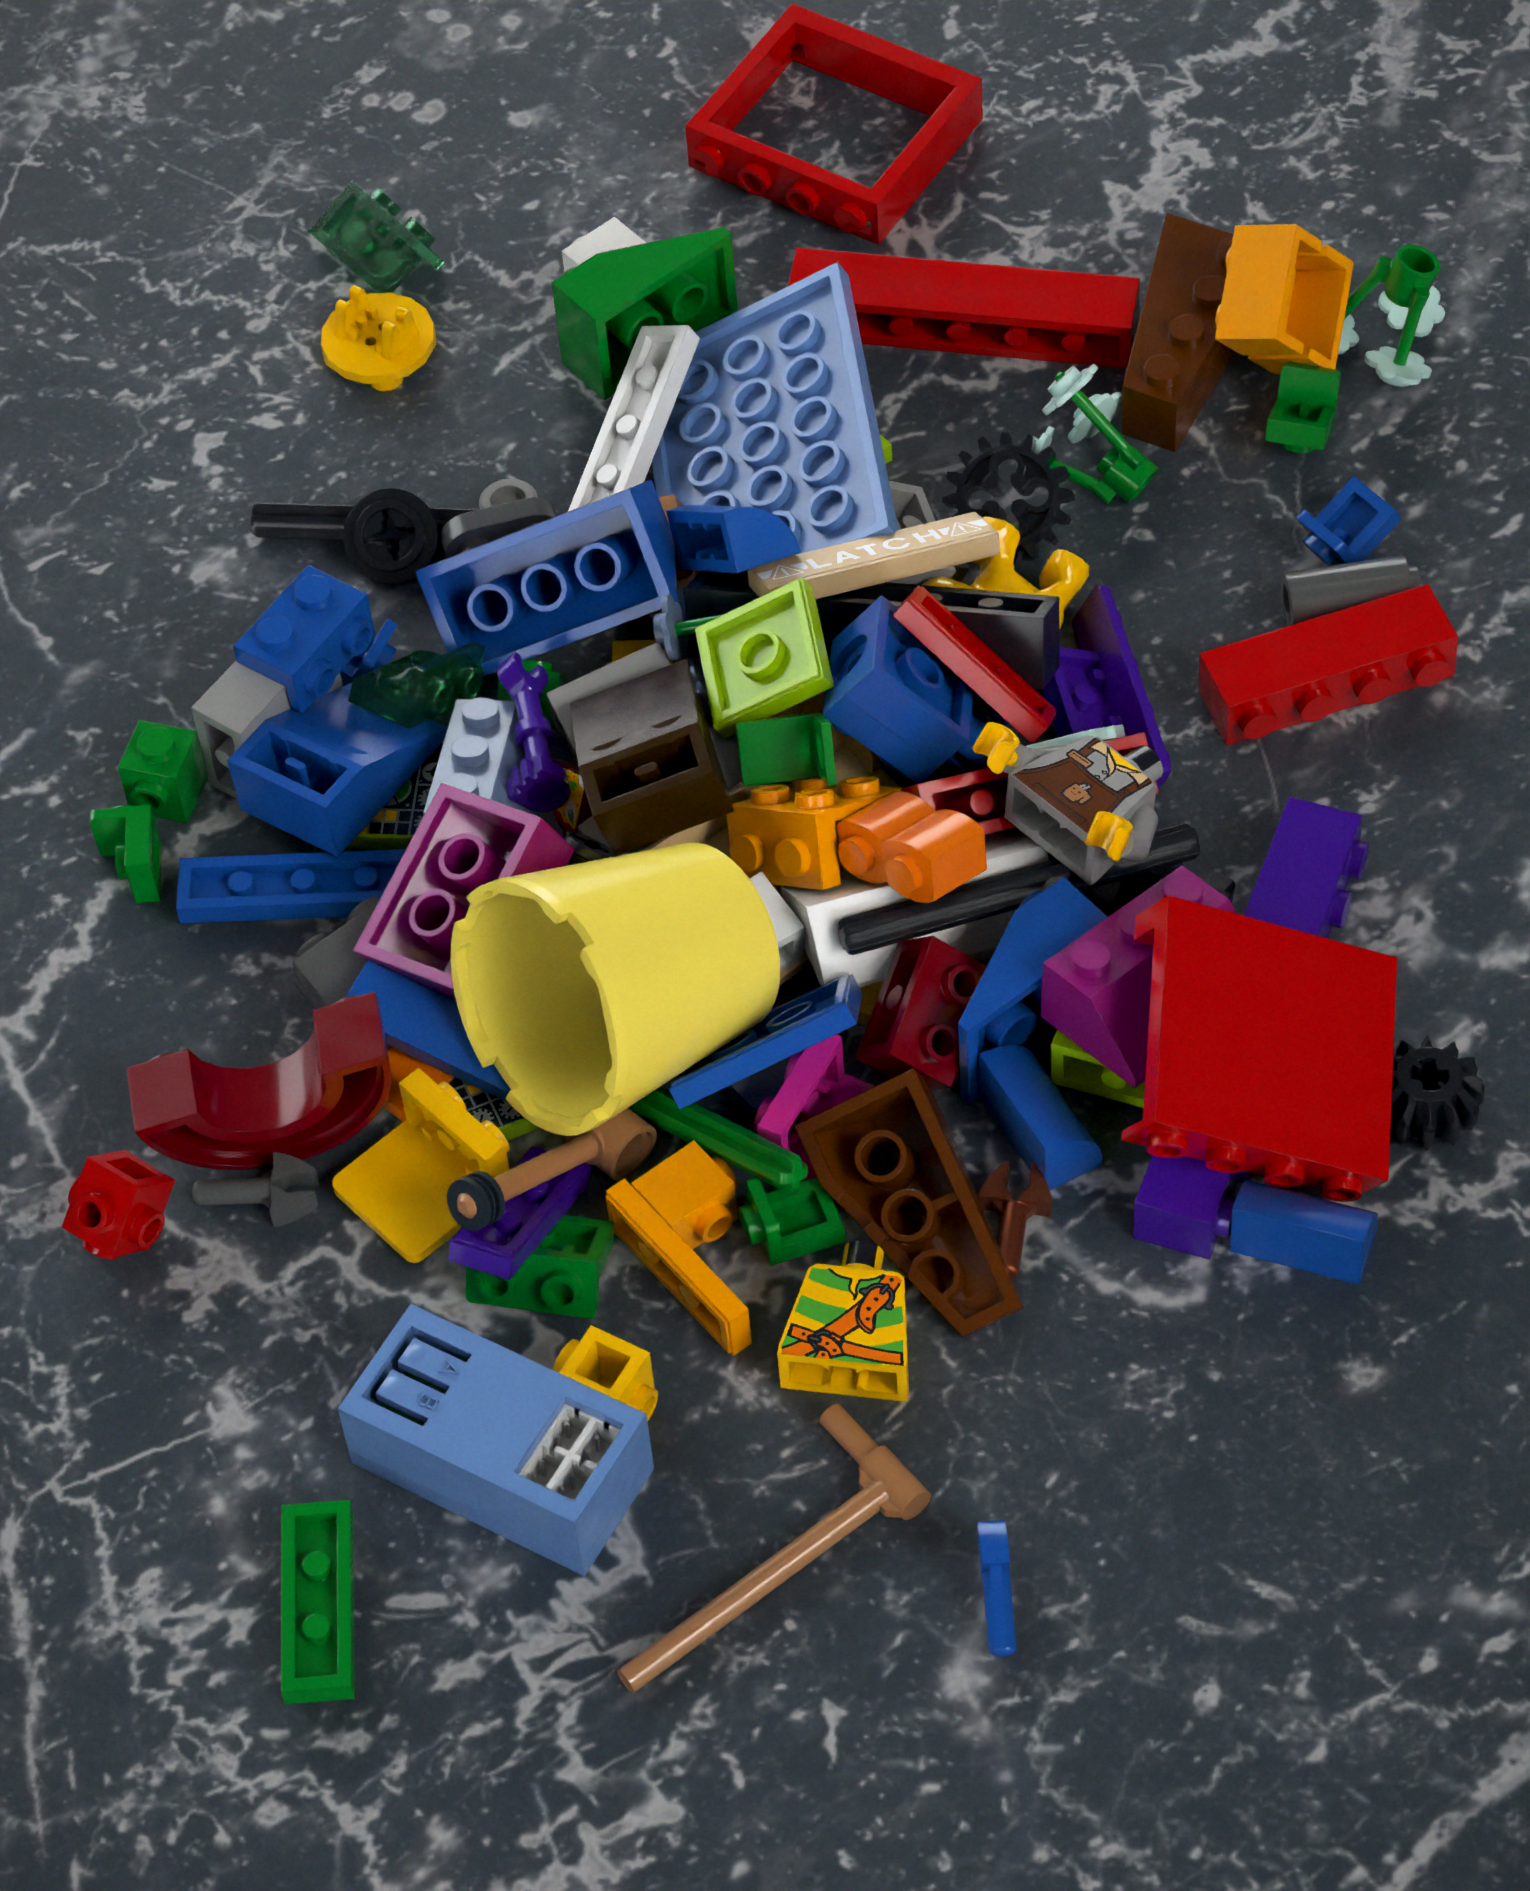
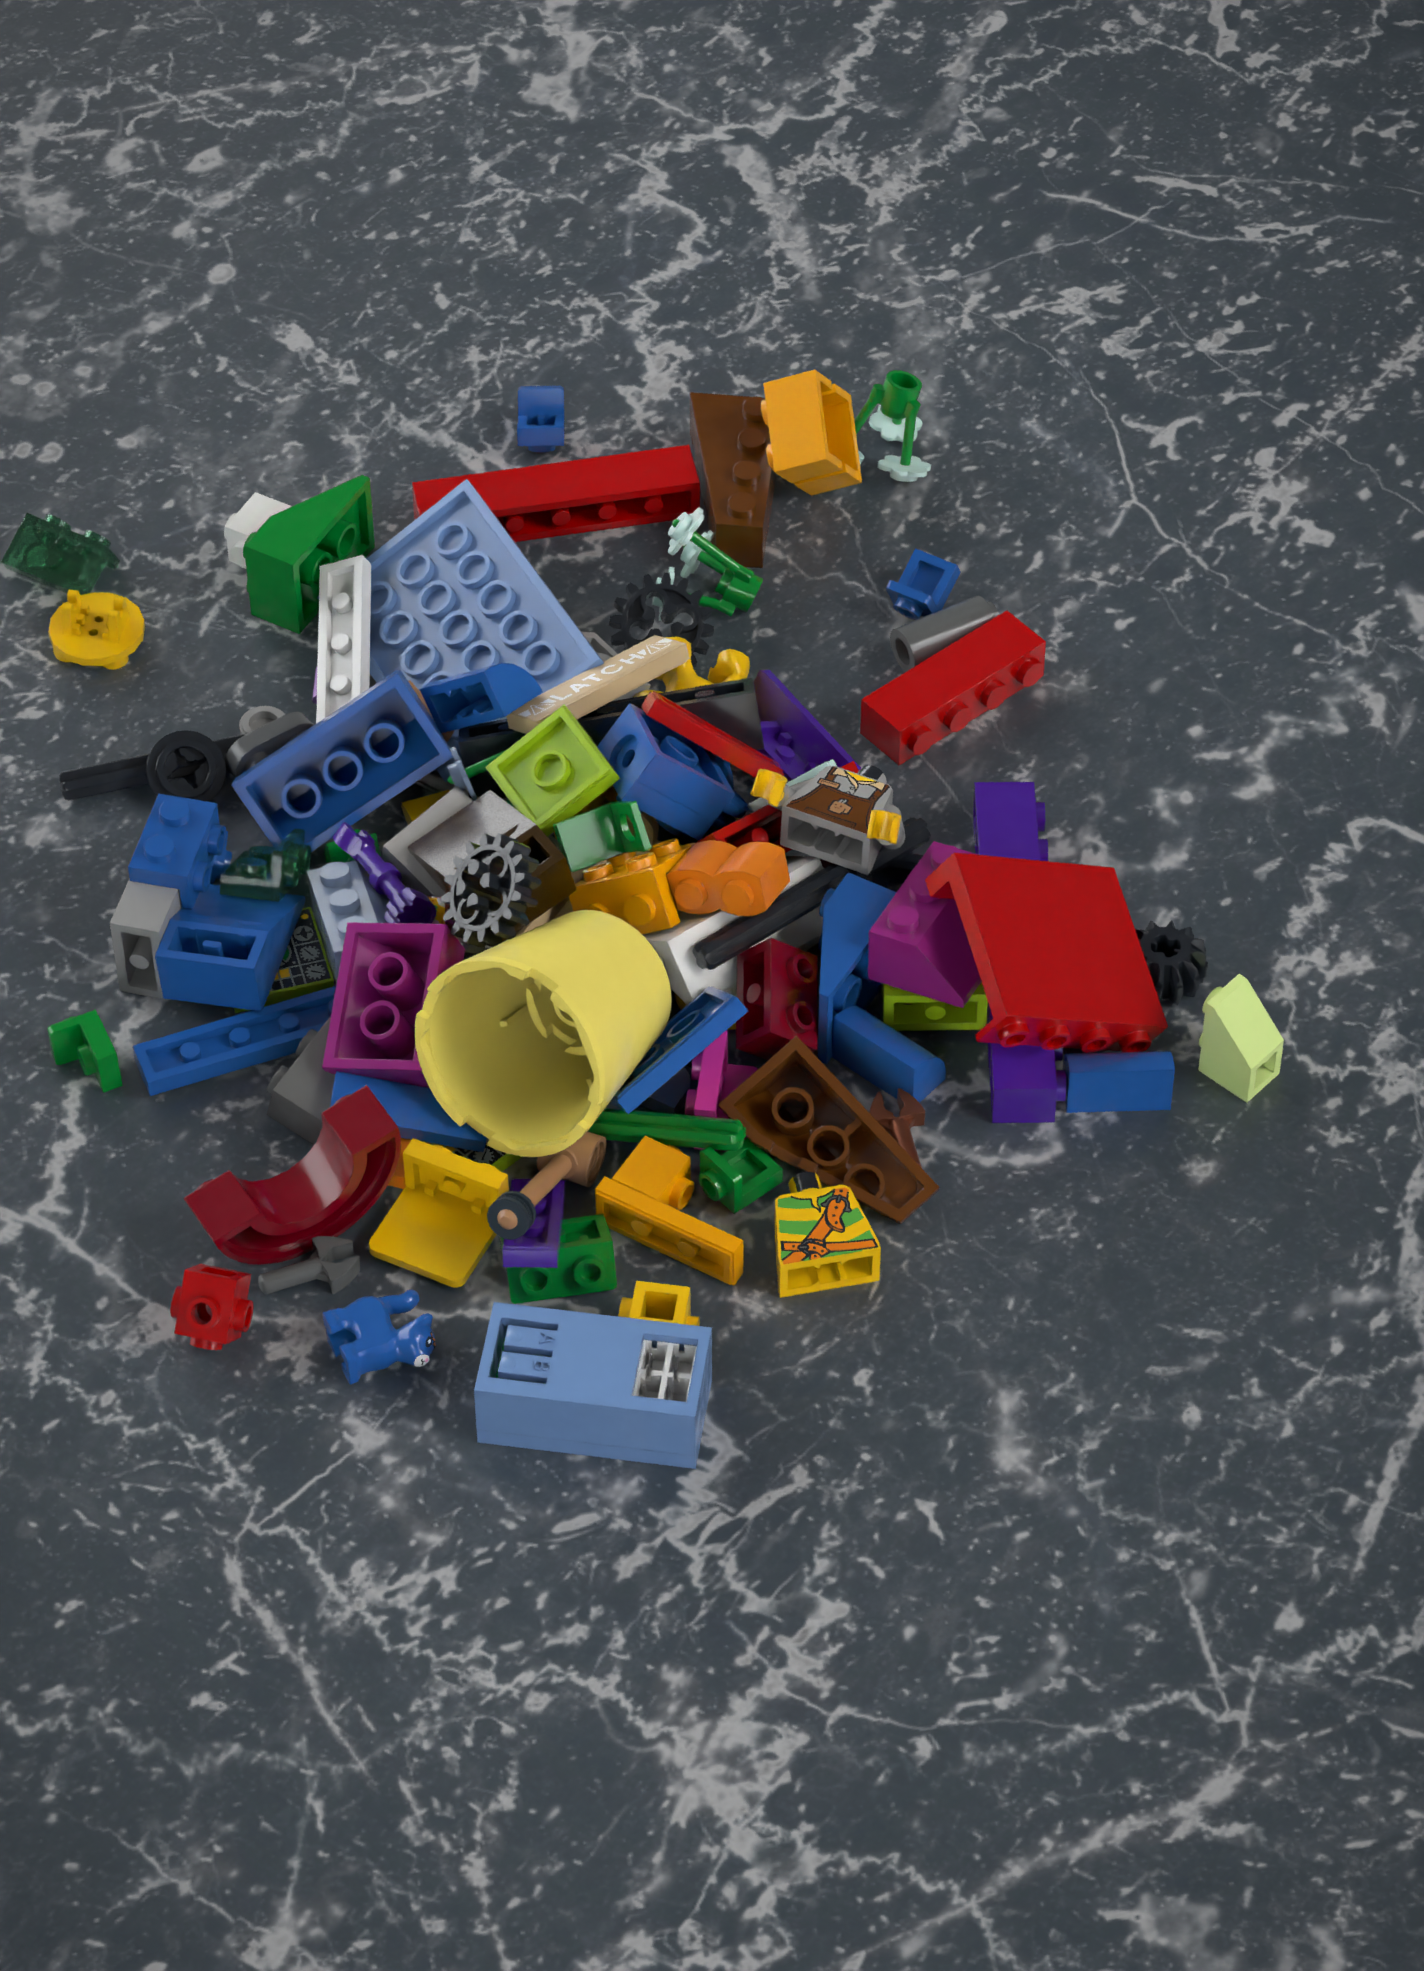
camera: 25 degrees left, 5 degrees down
(163, 769) = (87, 982): green brick -> none
(279, 1297) = (368, 1339): none -> blue animal
(317, 1602) = (506, 1541): green plate -> none
(602, 792) = (504, 870): none -> black gear
(861, 60) = (398, 339): red window -> none
(884, 1487) = (893, 1341): medium nougat bar -> none
(991, 203) = (541, 417): none -> blue bracket
(997, 1591) = (1001, 1362): blue bar -> none
(1304, 407) = (851, 510): green bracket -> none
(1468, 1224) = (1239, 1040): none -> yellowish green slope

